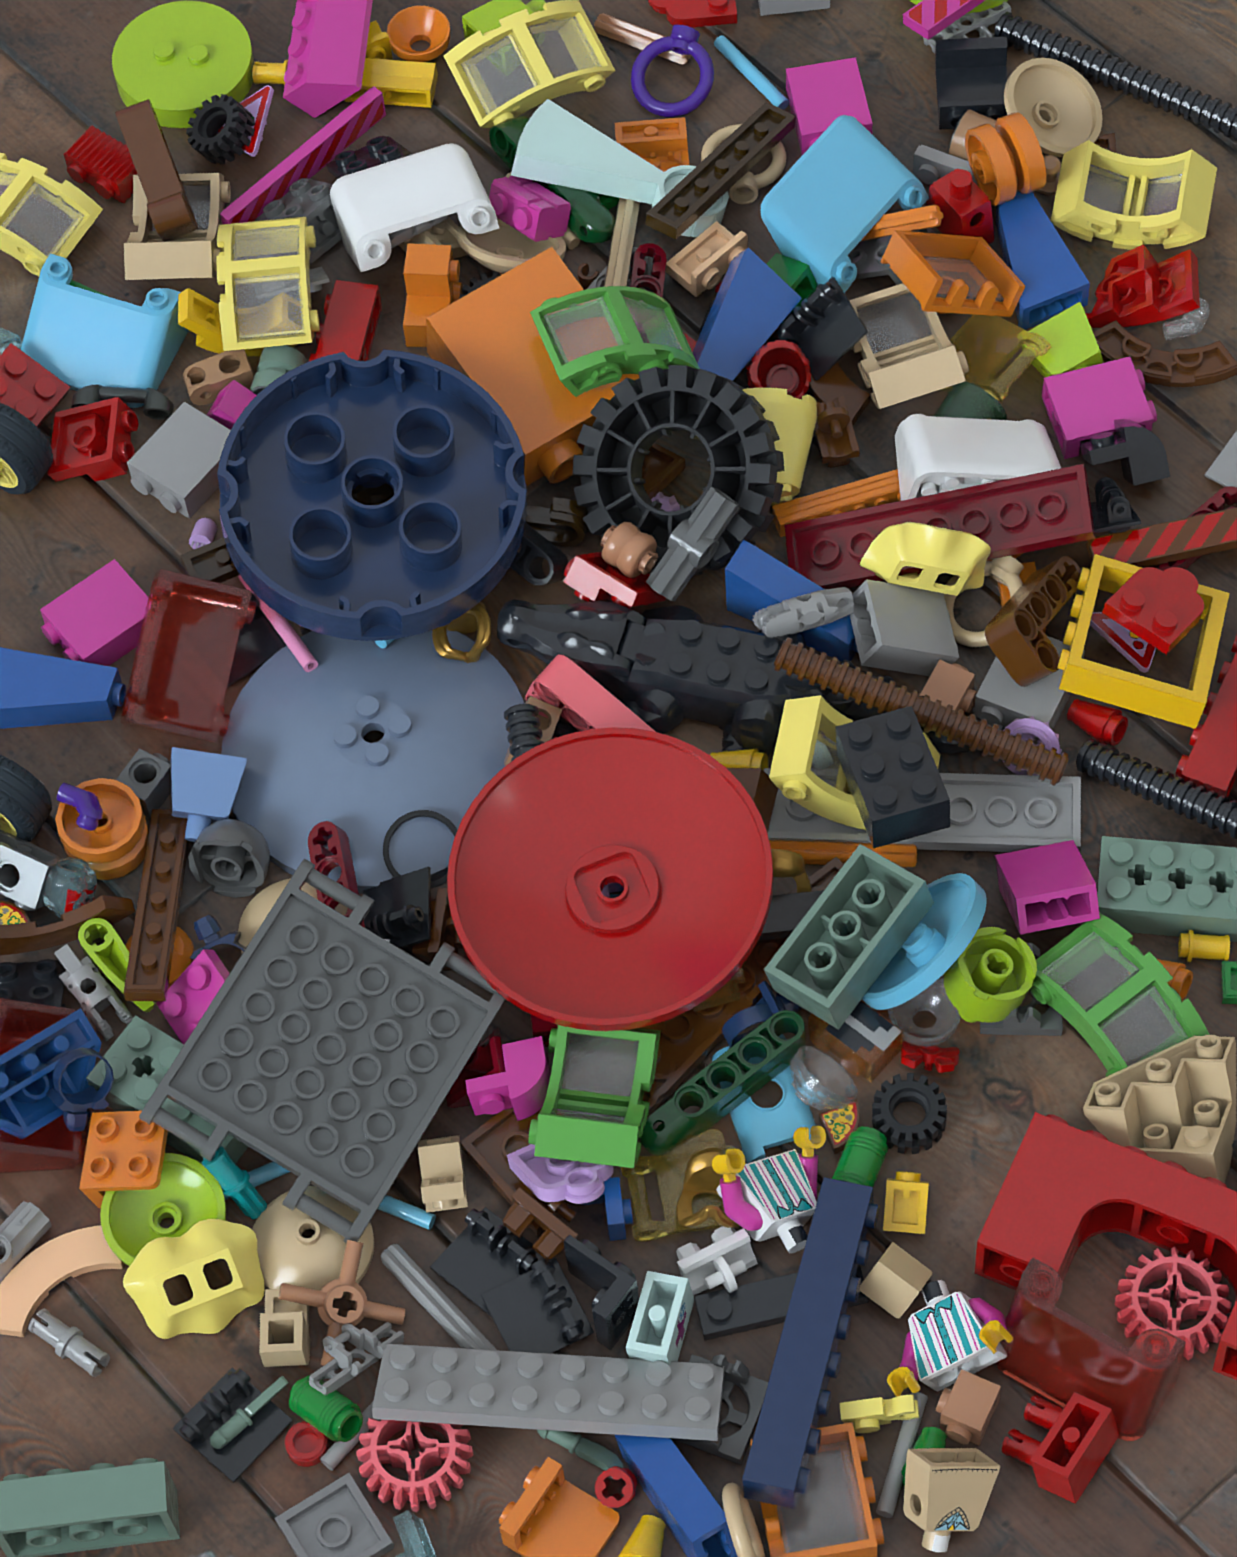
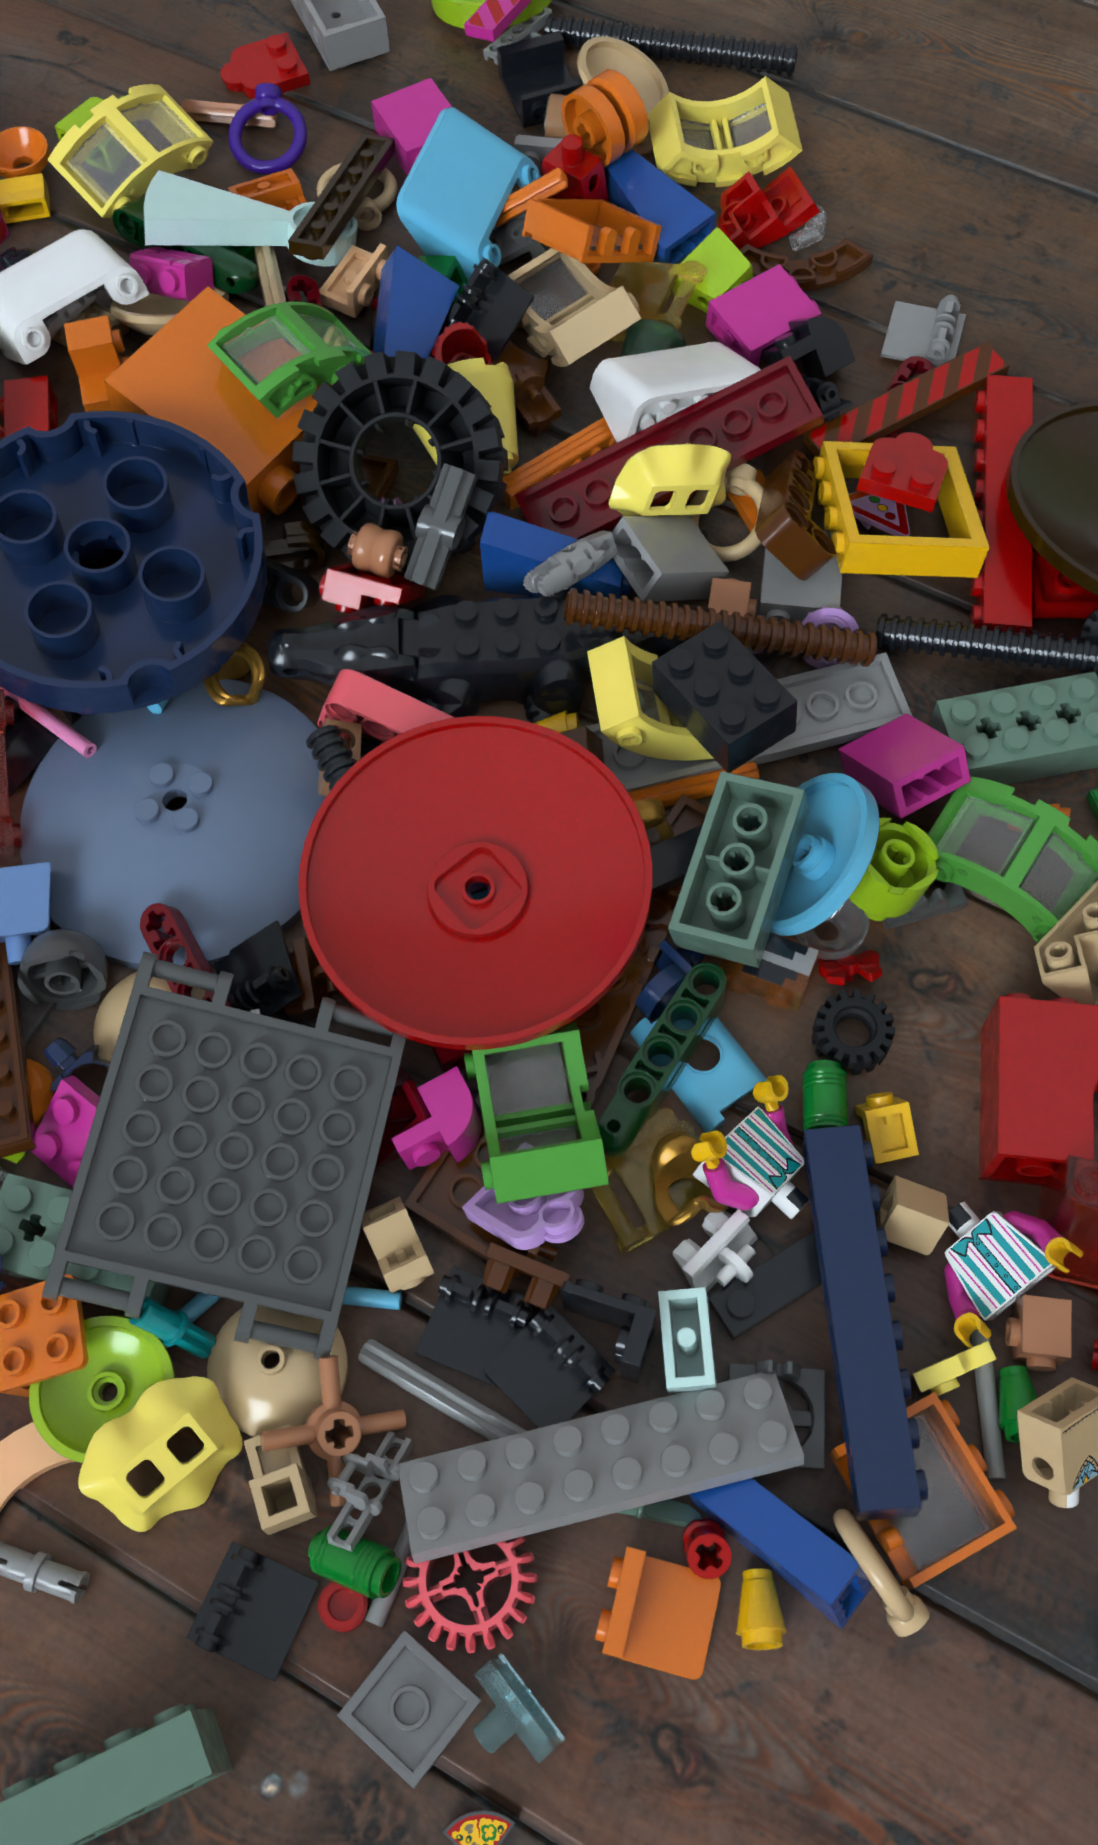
camera: 20 degrees left, 5 degrees up
(242, 1418) = (263, 1602): sand green piece -> none
(419, 813) = (252, 867): black piece -> none
(617, 1209) = (596, 1229): blue bracket -> none
(751, 72) = (333, 116): medium azure bar -> none
(821, 1080) = (754, 1025): clear piece -> none
(839, 1124) = (789, 1061): tile -> none
(1099, 721) = (878, 596): red cone -> none
(1203, 946) = (1058, 783): yellow pin -> none

